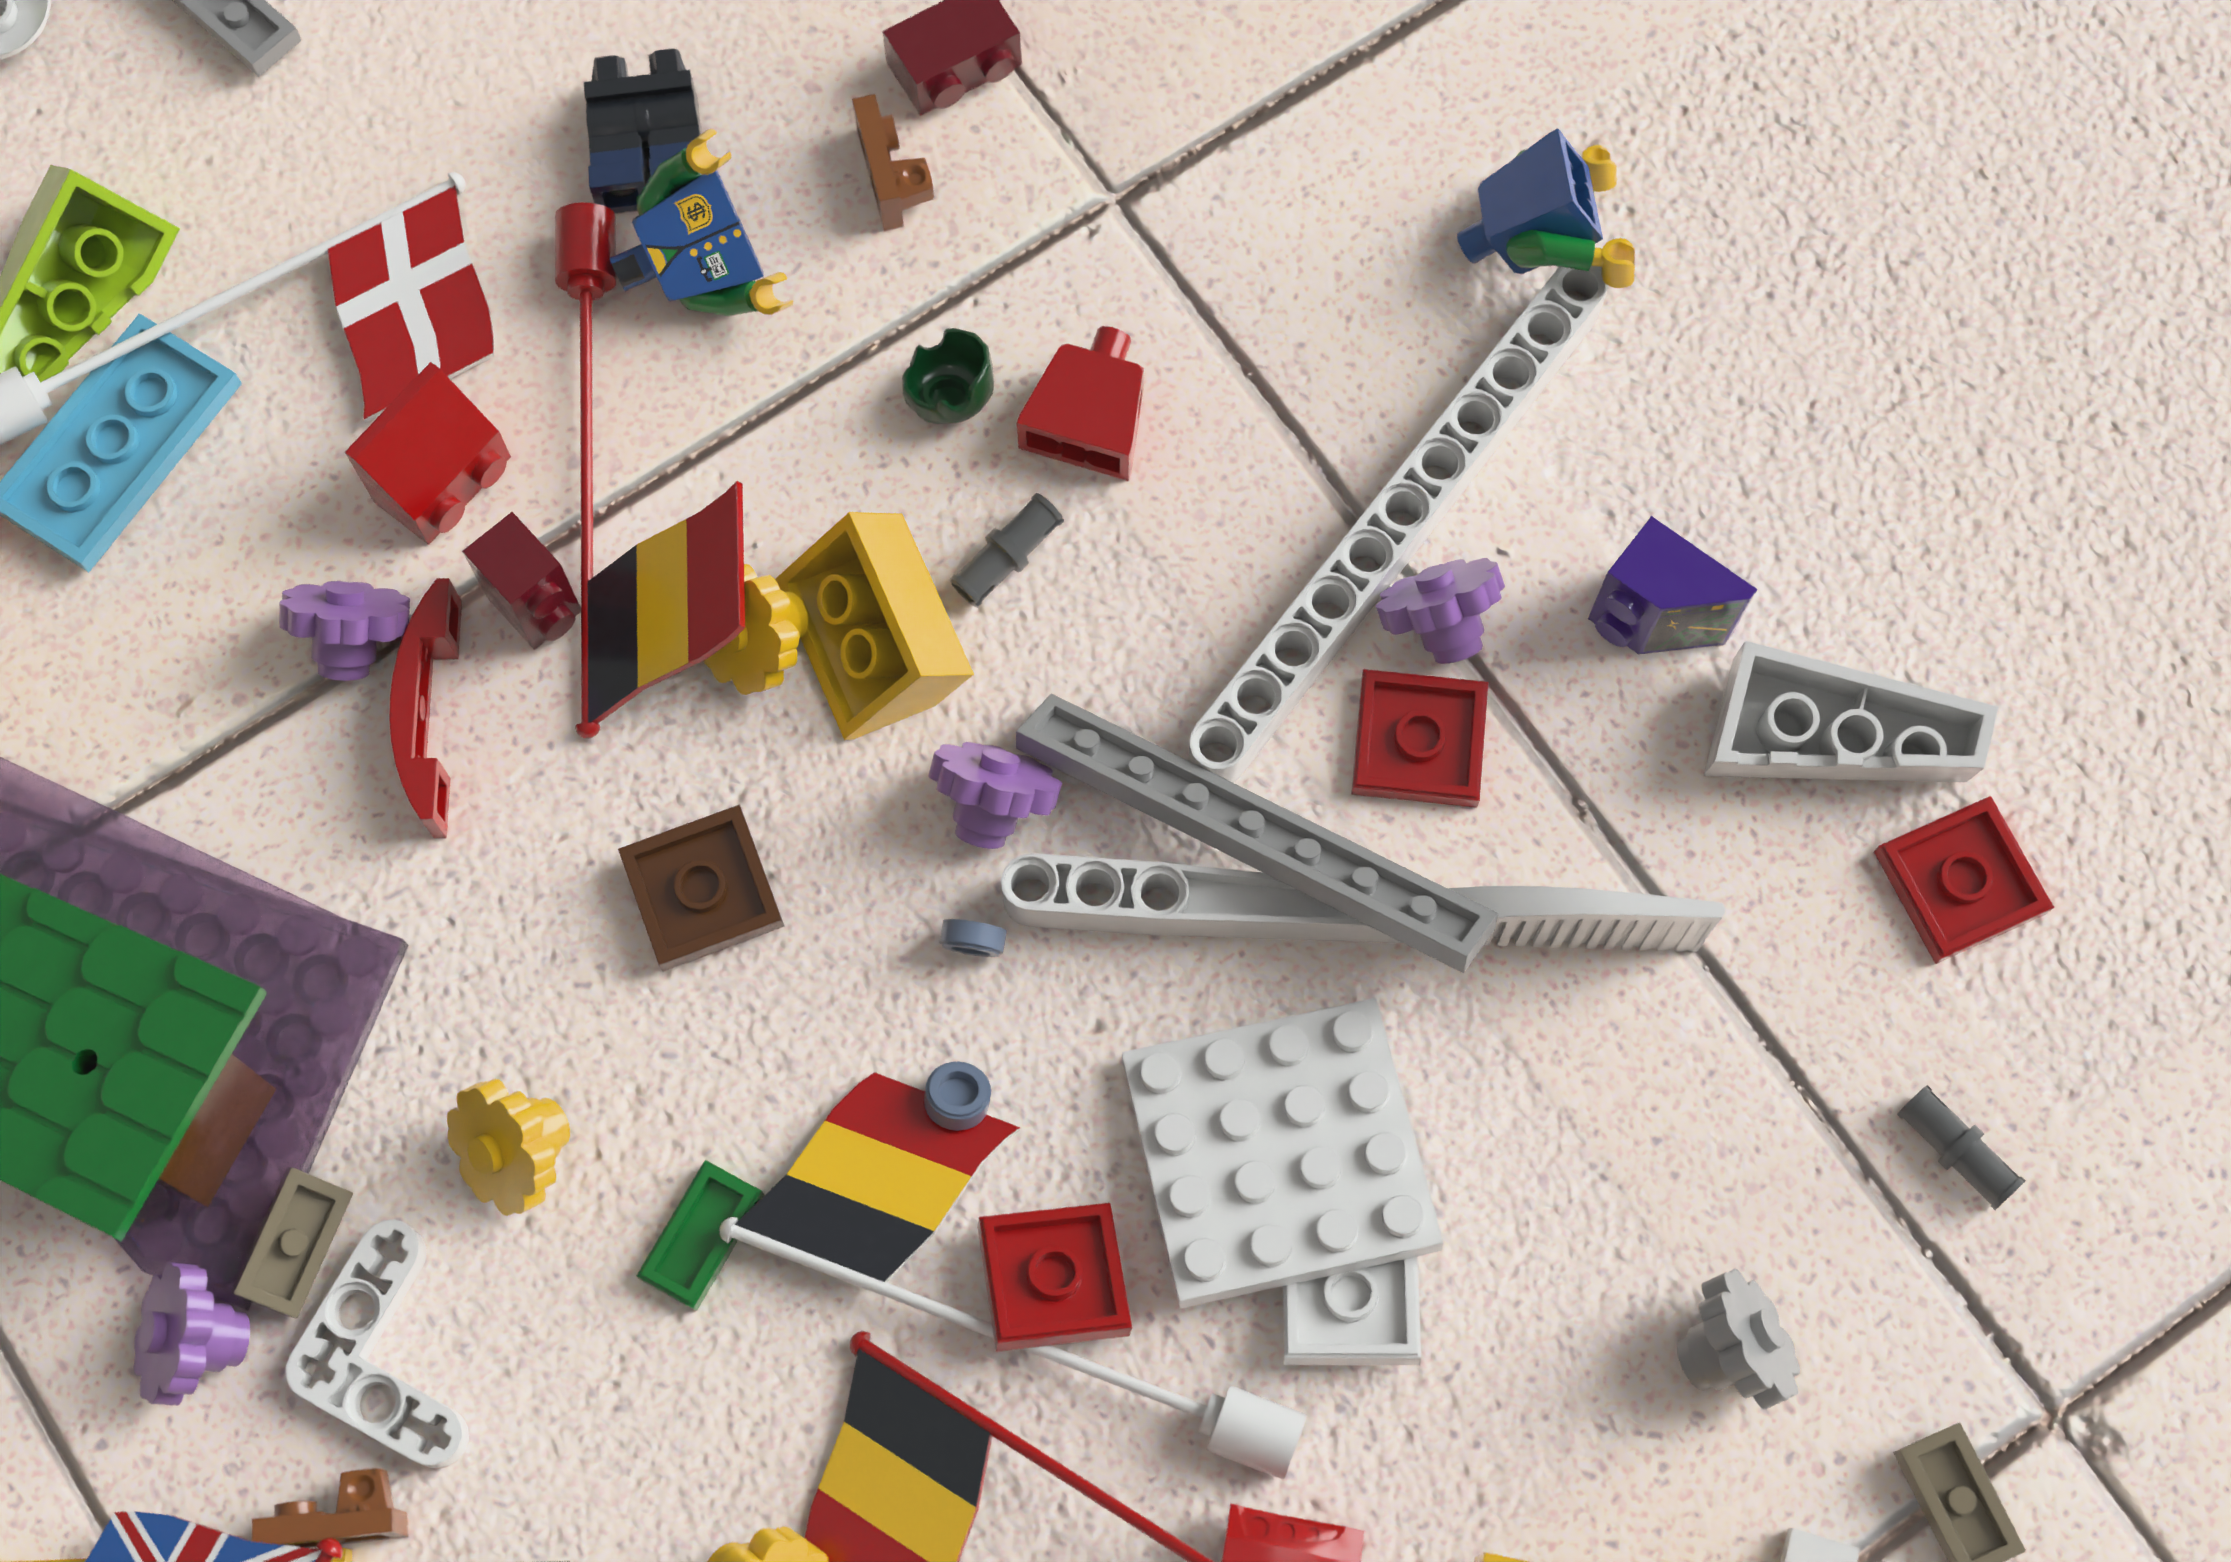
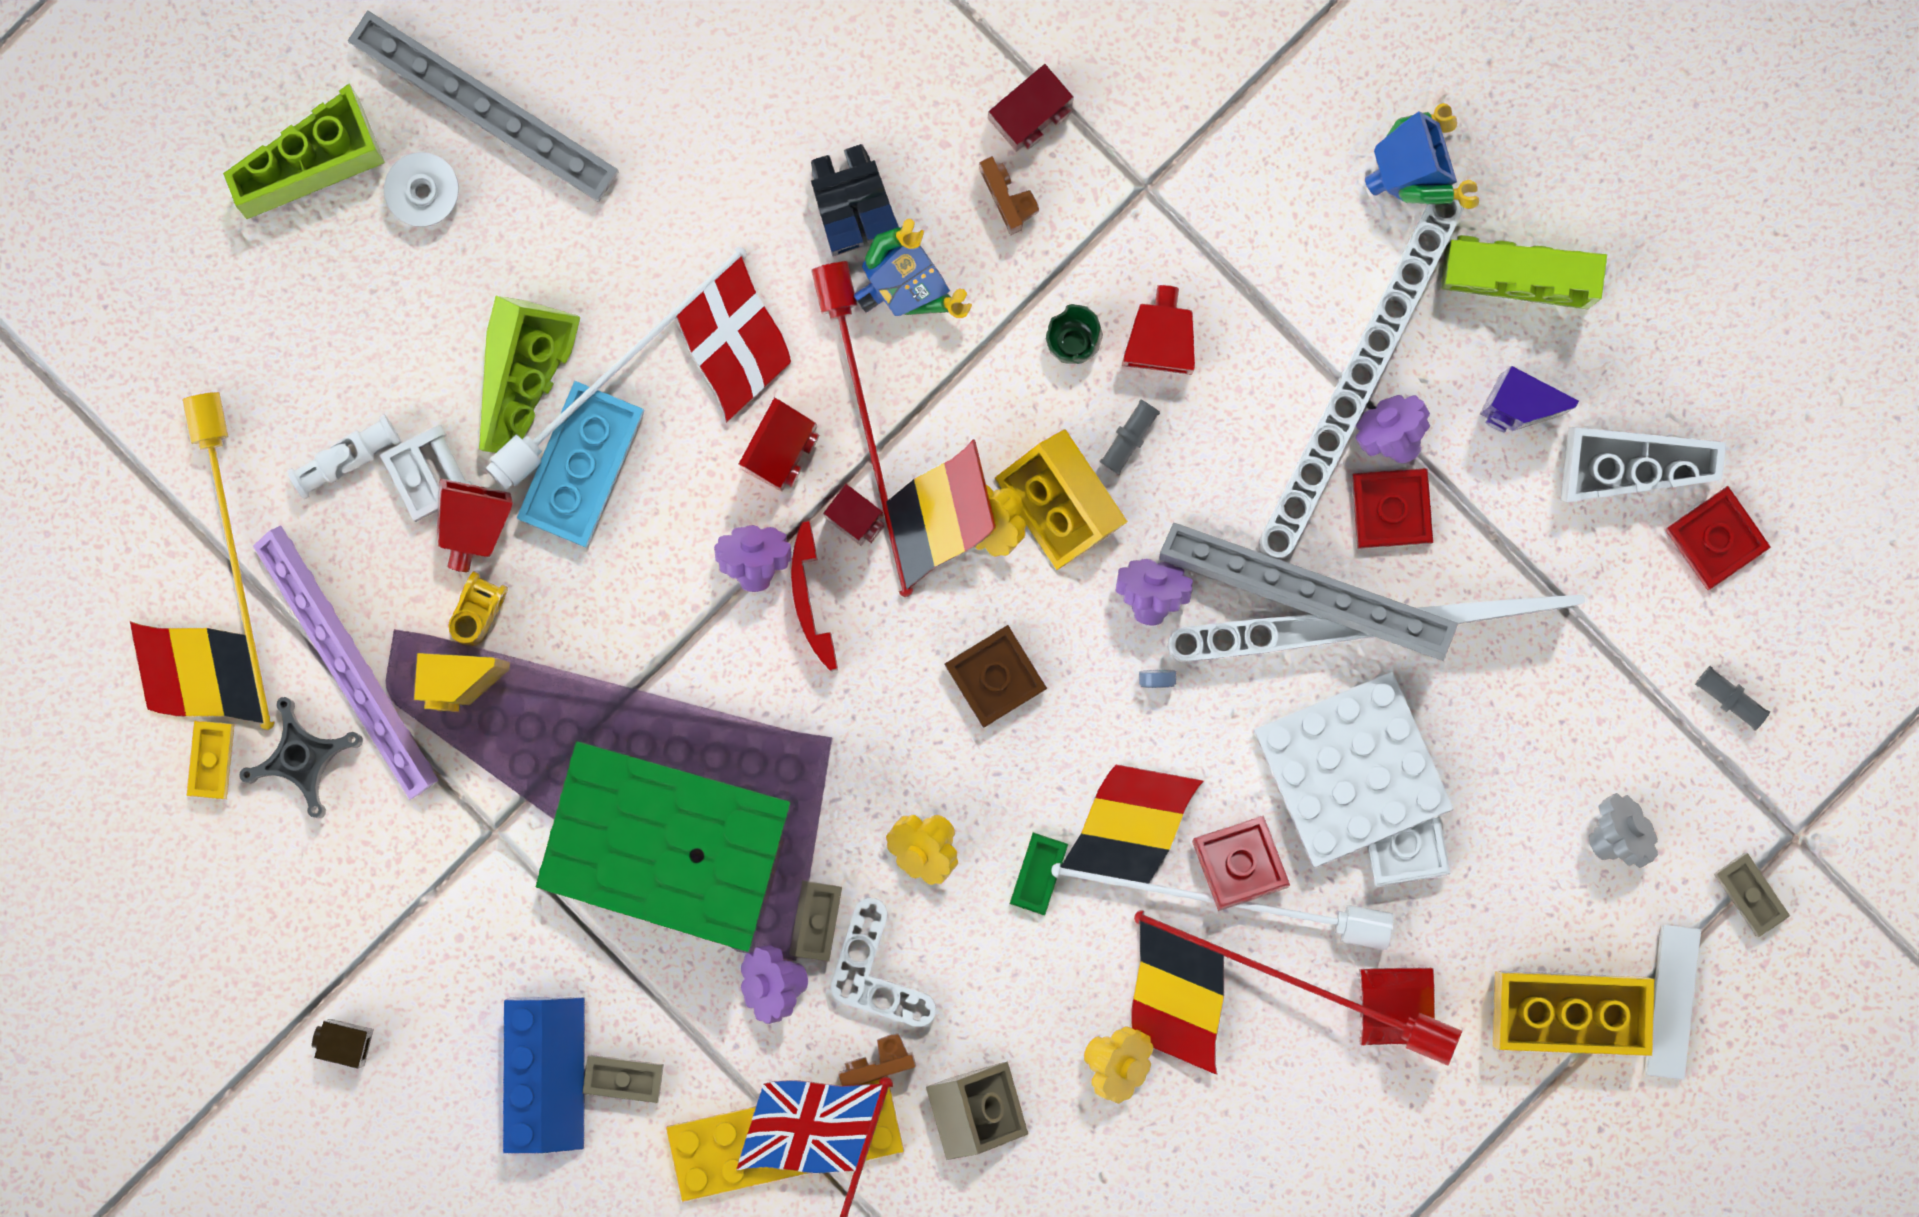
camera: 10 degrees left, 15 degrees up
(957, 1095) = (1166, 770): sand blue tile -> none
(1696, 405) = (1524, 272): none -> lime wedge

